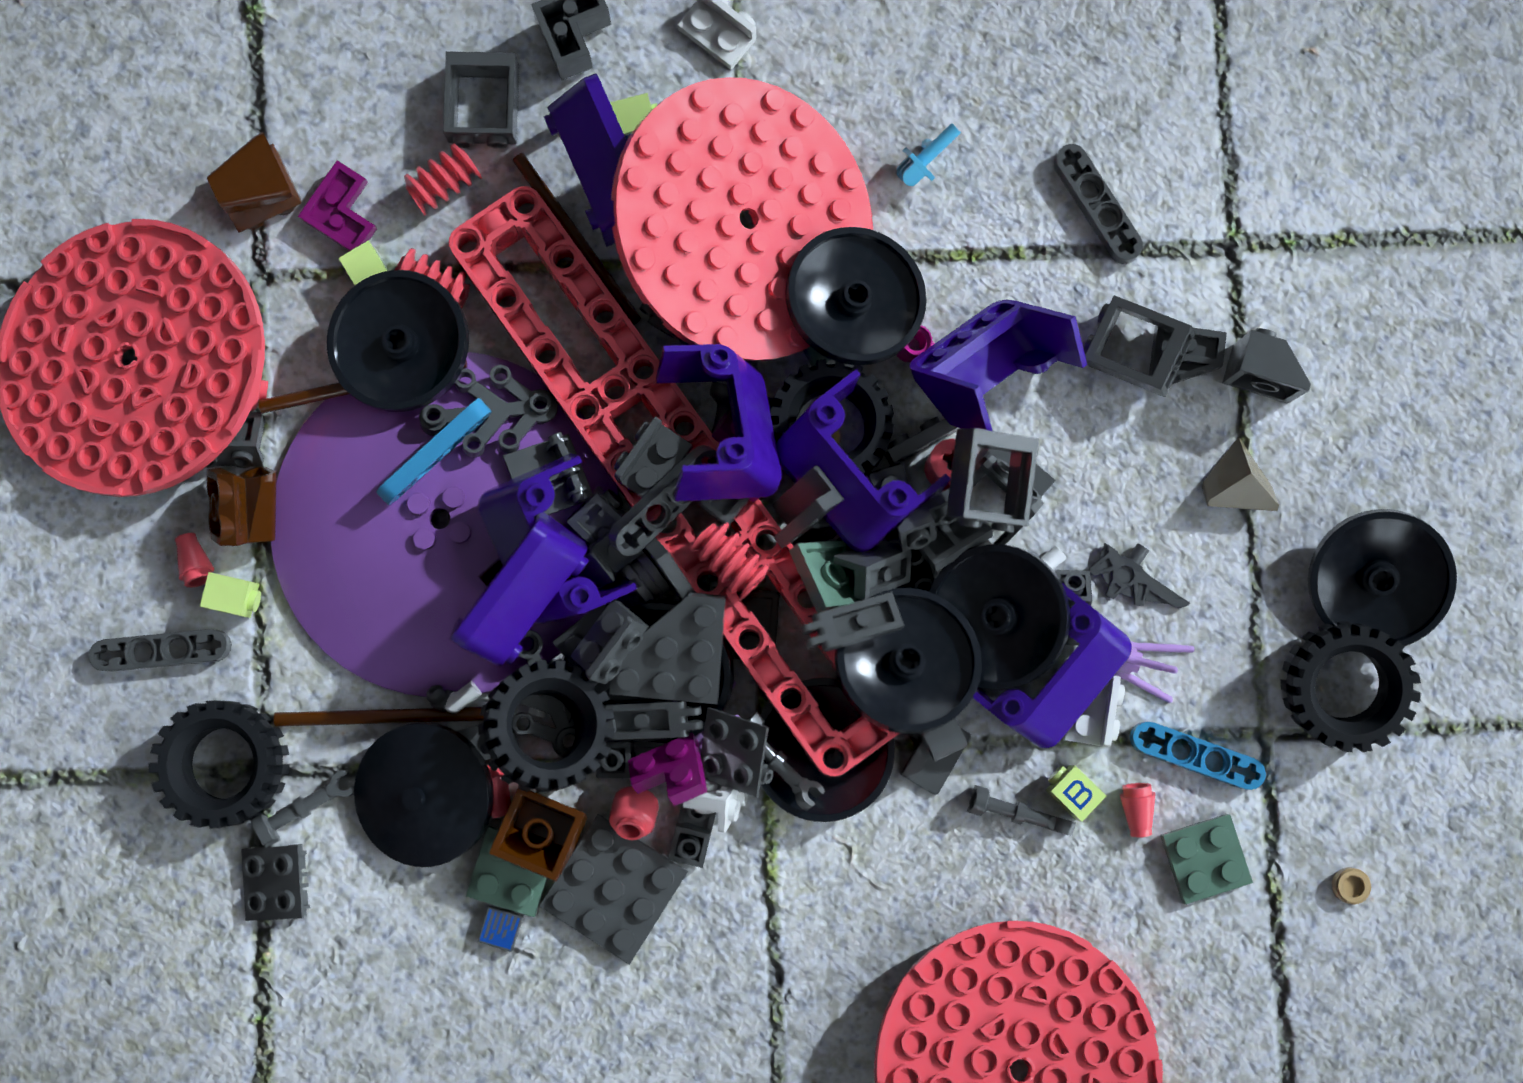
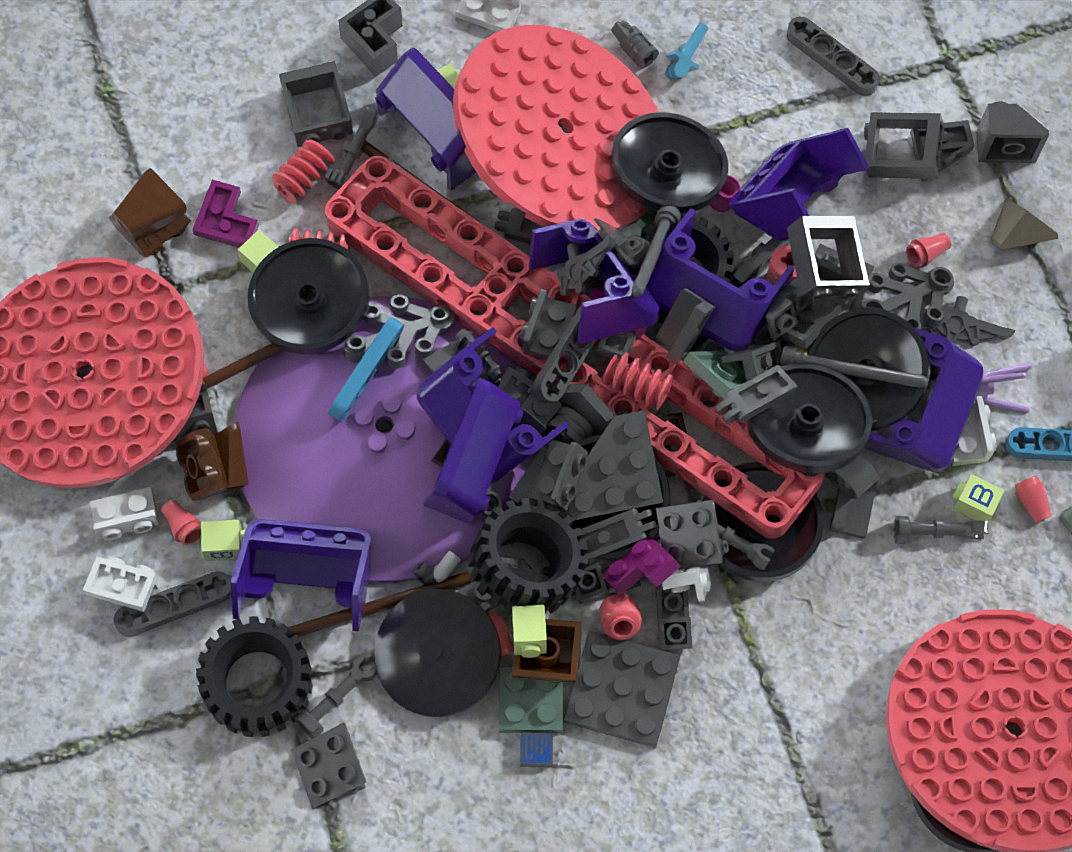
camera: 15 degrees left, 15 degrees down
(105, 615) = (121, 583): none -> white bracket
(135, 530) = (124, 514): none -> white bracket
(309, 638) = (302, 556): none -> dark purple windscreen
(520, 813) = (529, 630): none -> yellowish green brick
(531, 140) = (353, 151): none -> dark grey piece
(710, 405) = (582, 267): none -> dark grey piece
(767, 402) = (630, 251): none -> dark grey hinge
(827, 371) = (666, 220): none -> dark grey piece
(871, 124) = (635, 44): none -> dark grey hinge
(919, 577) = (792, 355): none -> dark grey piece
(1083, 529) = (937, 282): none -> dark grey plant
(1123, 477) = (927, 249): none -> coral cone

